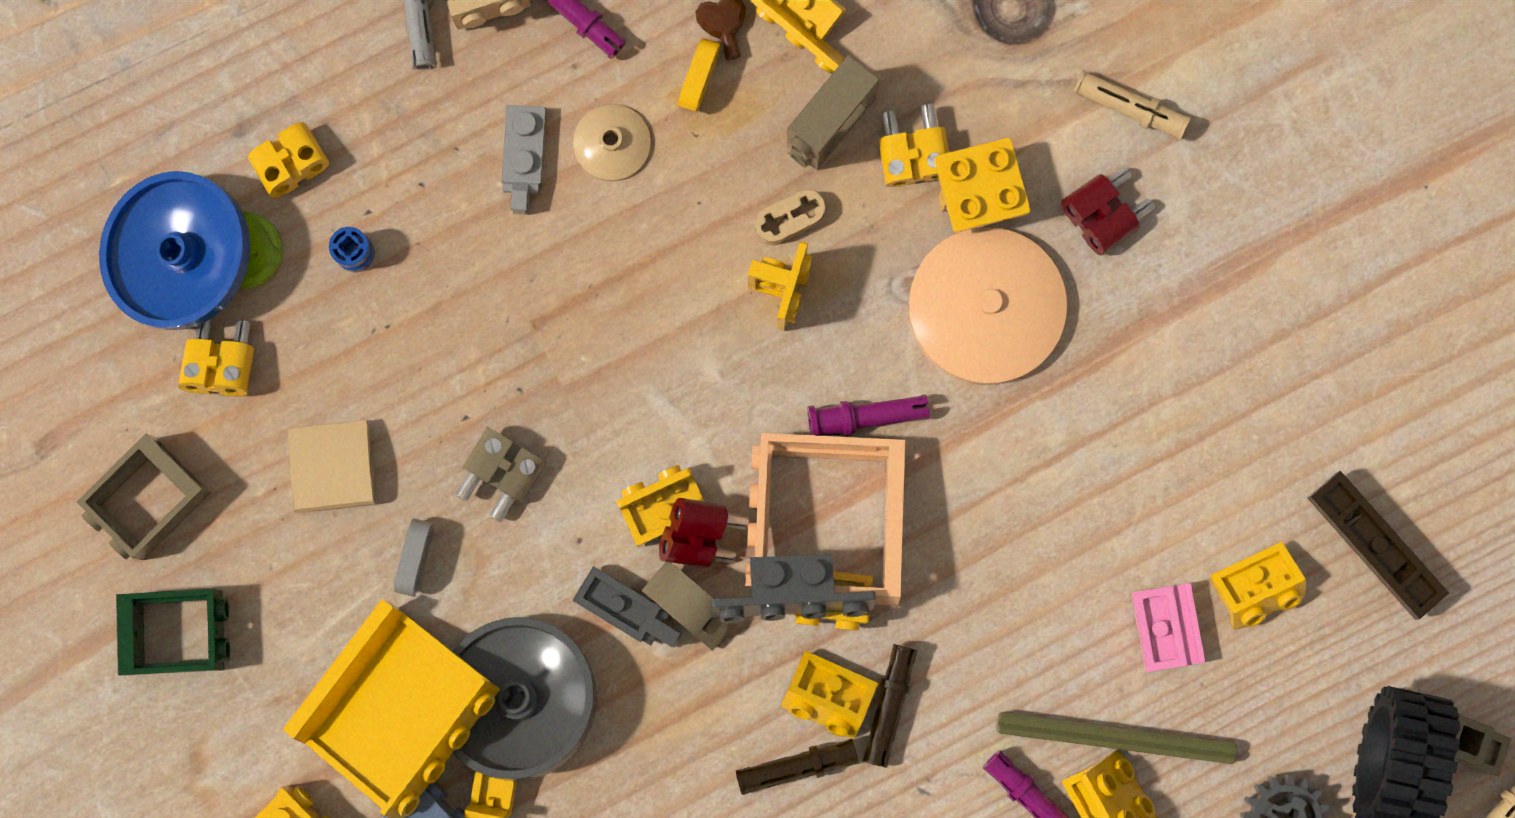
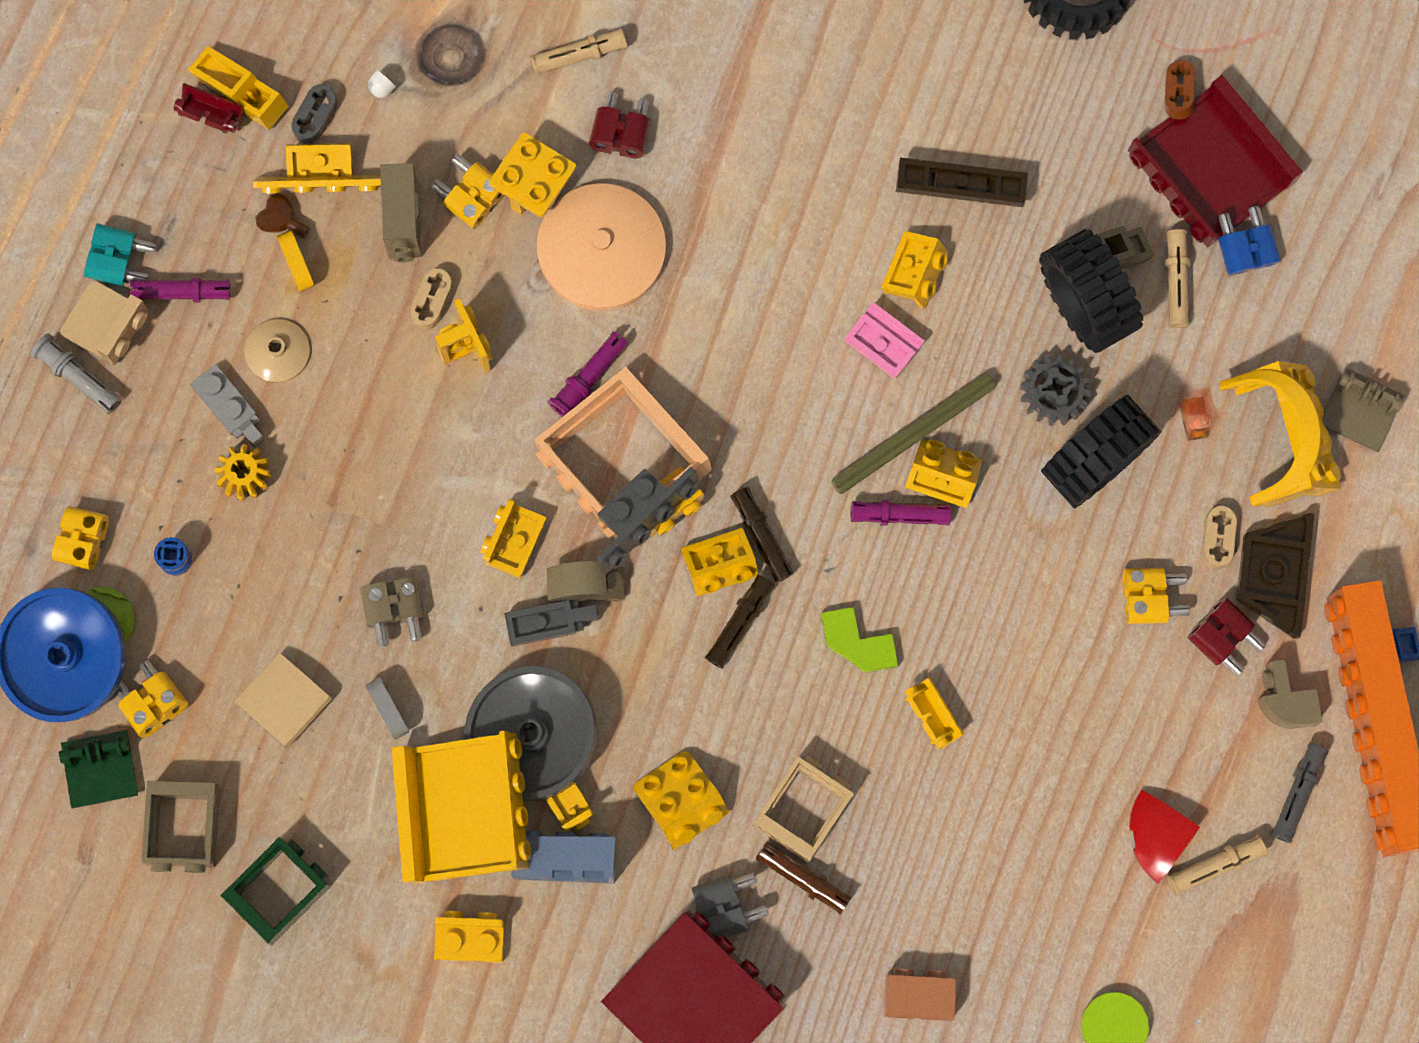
camera: 50 degrees left, 5 degrees down
(121, 381) = (99, 769): none -> dark green hinge
(494, 223) = (234, 463): none -> yellow gear
(694, 533) = (548, 534): dark red piece -> none

